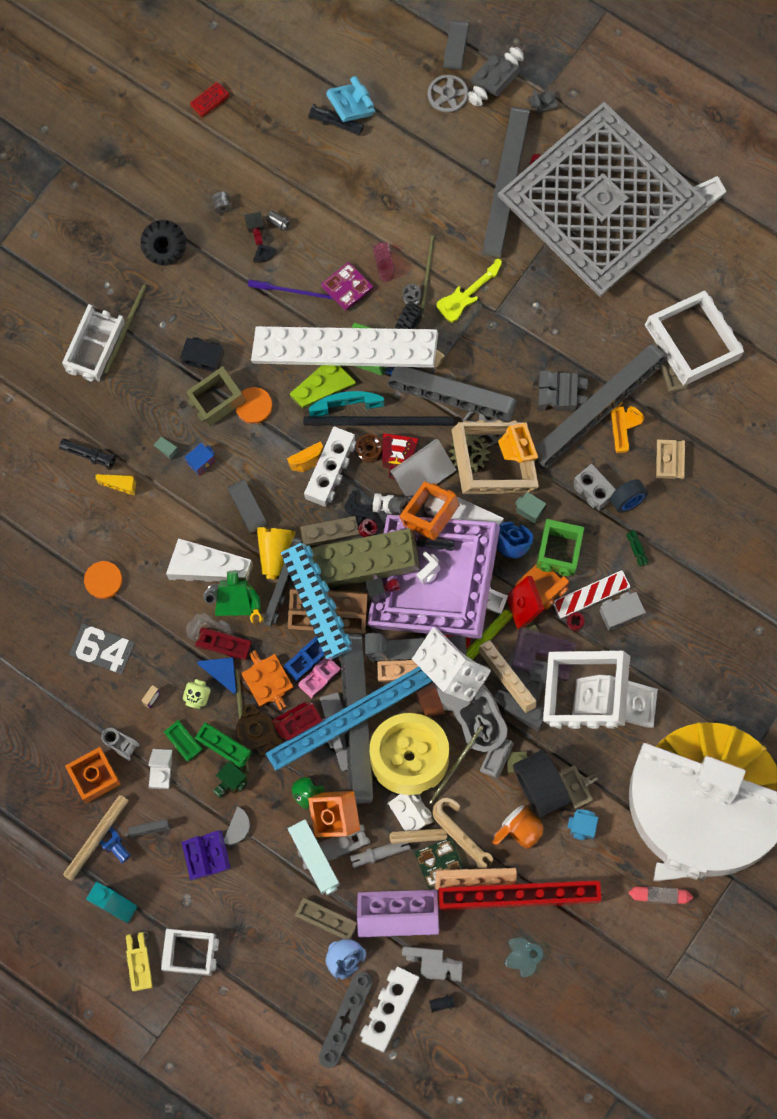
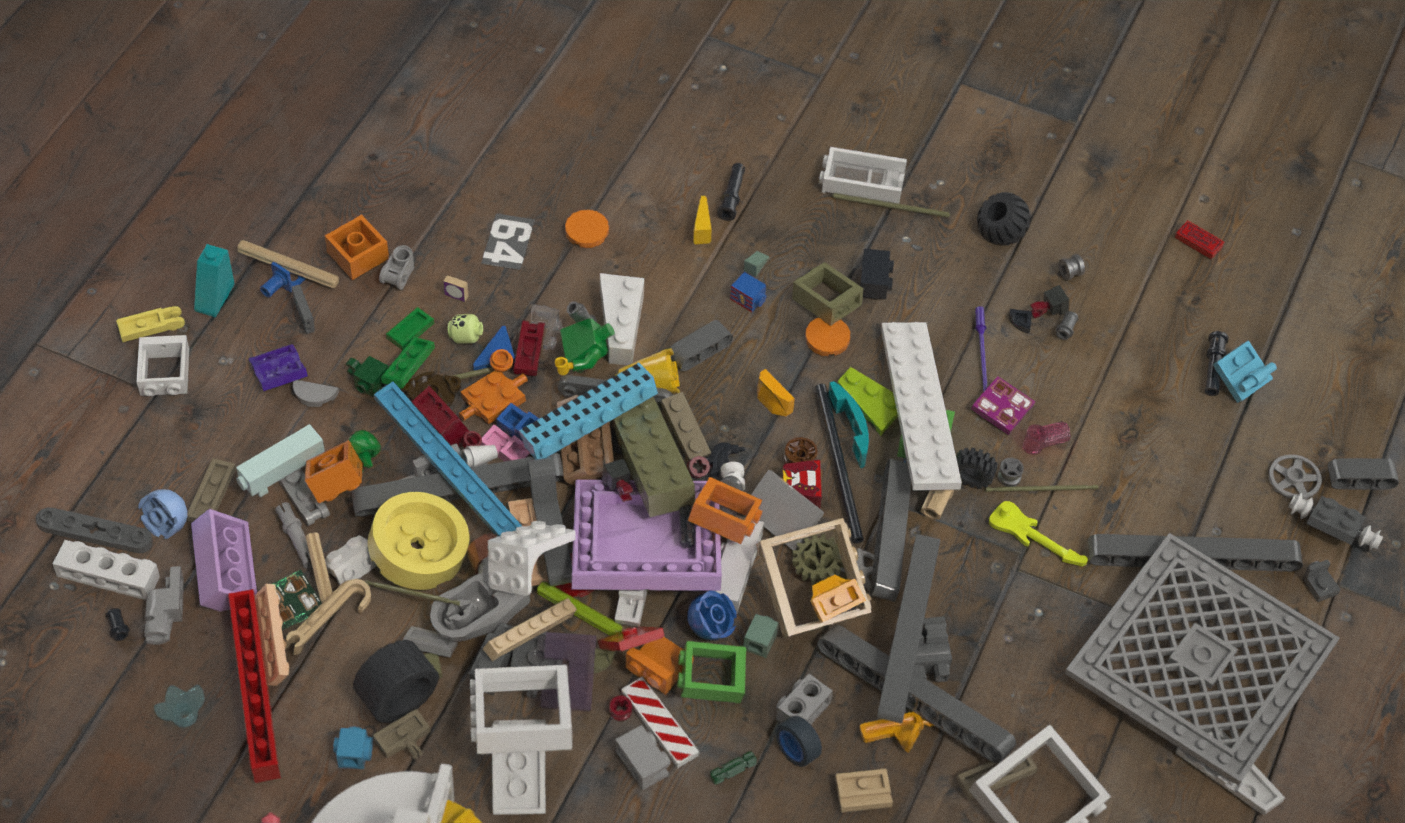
camera: 70 degrees right, 20 degrees down
(160, 768) = (380, 311): white slope -> none
(236, 668) = (501, 360): none -> orange plate
(315, 698) = (473, 437): none -> dark red hinge
(331, 698) = (478, 455): none -> white cone
(337, 439) = (757, 410): white brick -> none
(430, 571) = (649, 522): white bracket -> none
(522, 826) = (337, 675): orange piece -> none
(552, 396) = (908, 629): none -> dark grey beam

